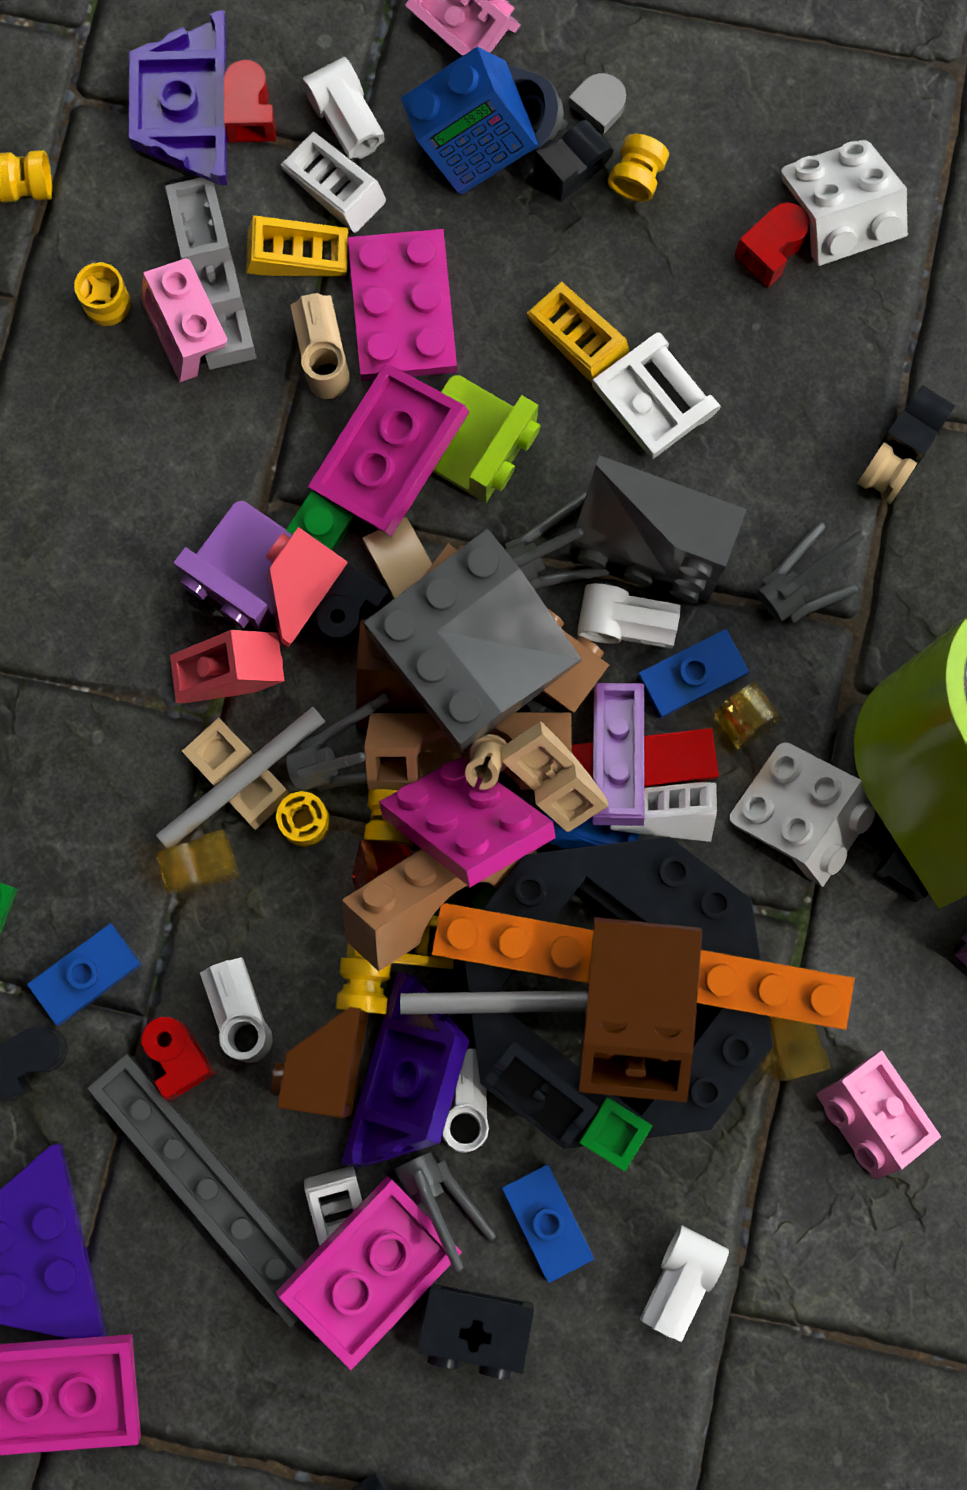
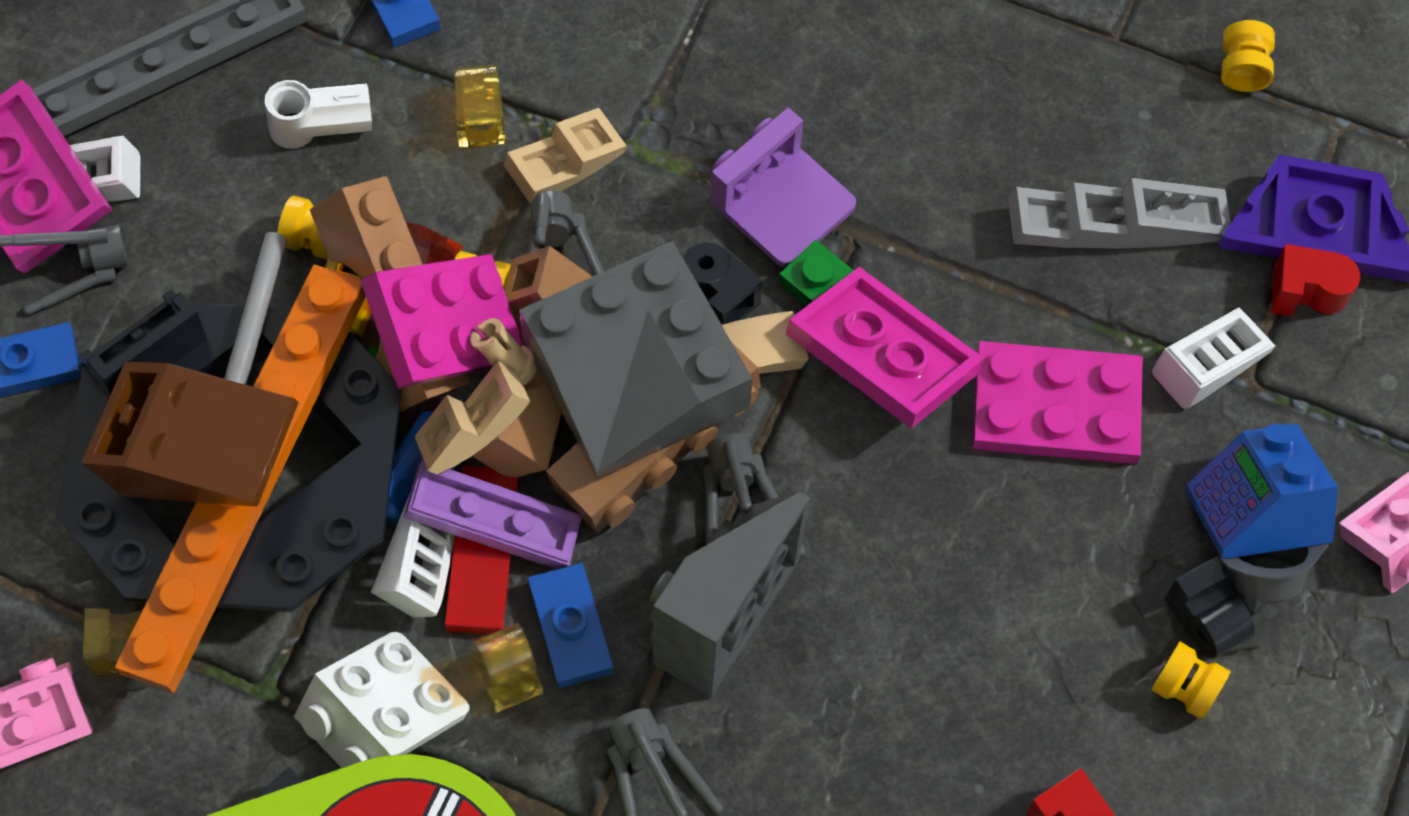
camera: 100 degrees right, 15 degrees down
(99, 283) = (1105, 108): yellow wheel -> none
(178, 1053) = (295, 54): red leg -> none
(181, 316) = (1067, 170): bright pink bracket -> none
(227, 666) = (676, 163): coral slope -> none
(240, 778) = (557, 154): light grey bar -> none
(279, 264) = (1144, 265): yellow slope -> none
(299, 580) = (750, 228): coral slope -> none
(310, 823) = (506, 212): yellow wheel -> none
(320, 345) = (1019, 305): tan piece -> none
(323, 1068) = (223, 153): reddish brown slope -> none
(339, 98) = (1311, 372): white piece -> none
(406, 1082) = (201, 246): dark purple wing -> none
(468, 1099) = (141, 275): white piece -> none
(488, 439) = (883, 452): lime bracket -> none
(599, 100) = (1284, 661): light grey tile -> none
(599, 353) = (965, 599): yellow slope -> none
(614, 616) = (650, 548): white piece -> none
(615, 1133) = (74, 407): green plate -> none
(644, 405) = (897, 630): white plate -> none

